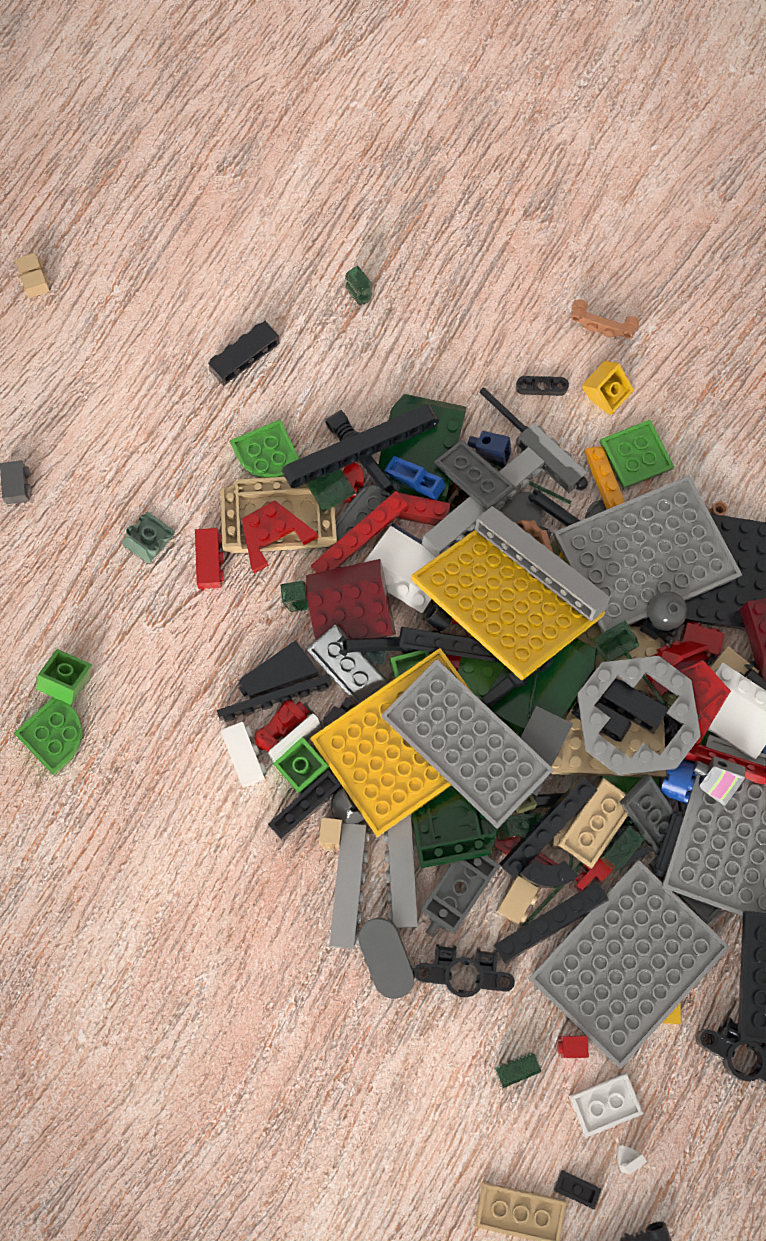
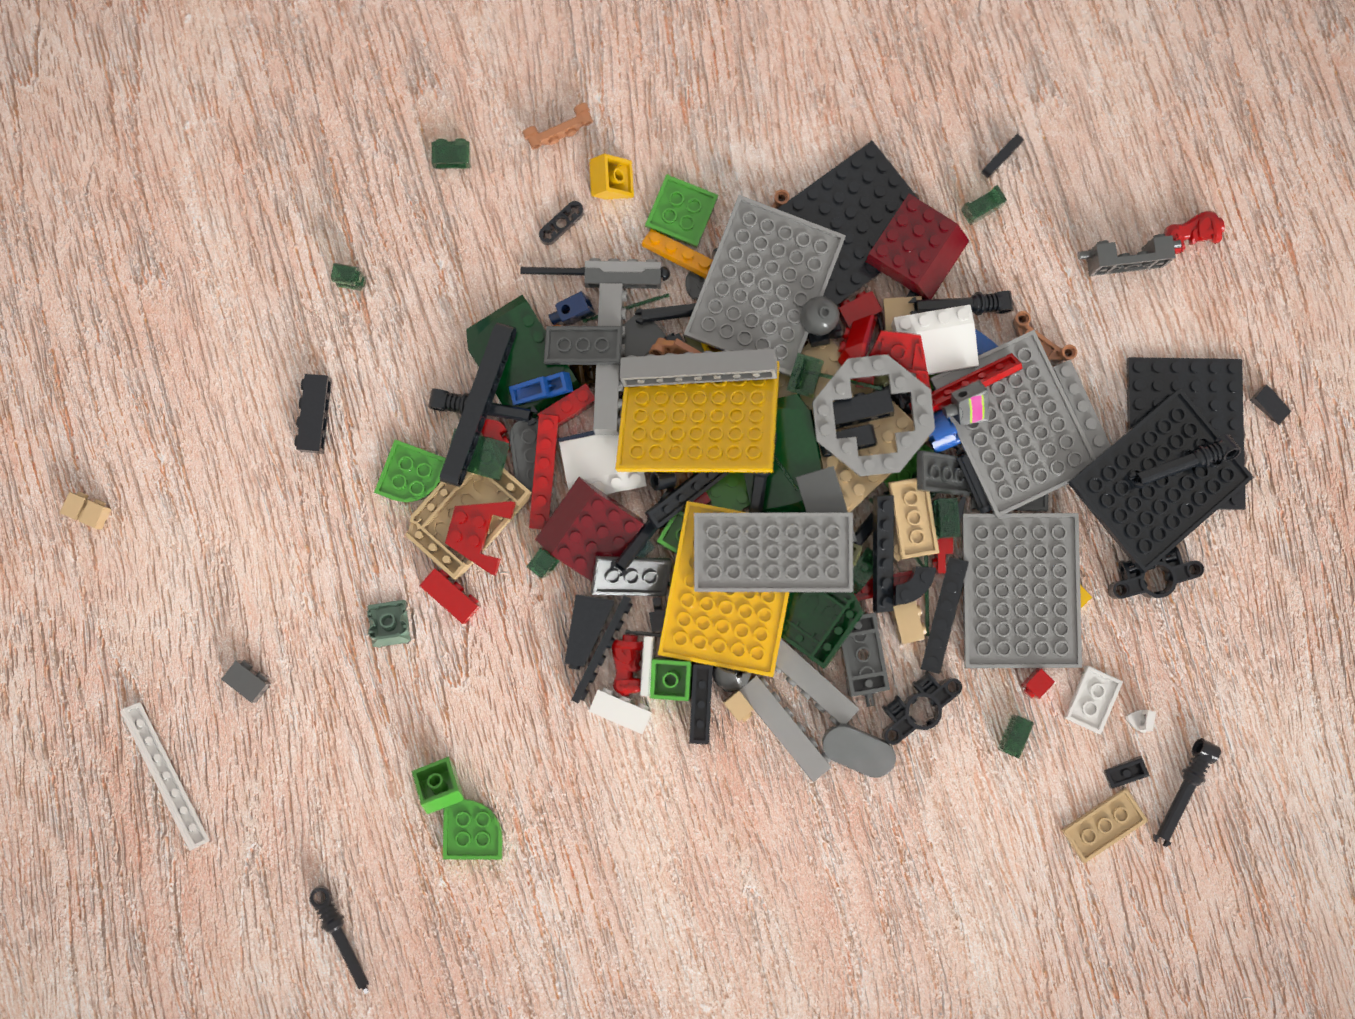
camera: 45 degrees left, 10 degrees up
(510, 273) = (451, 154): none -> clear green brick

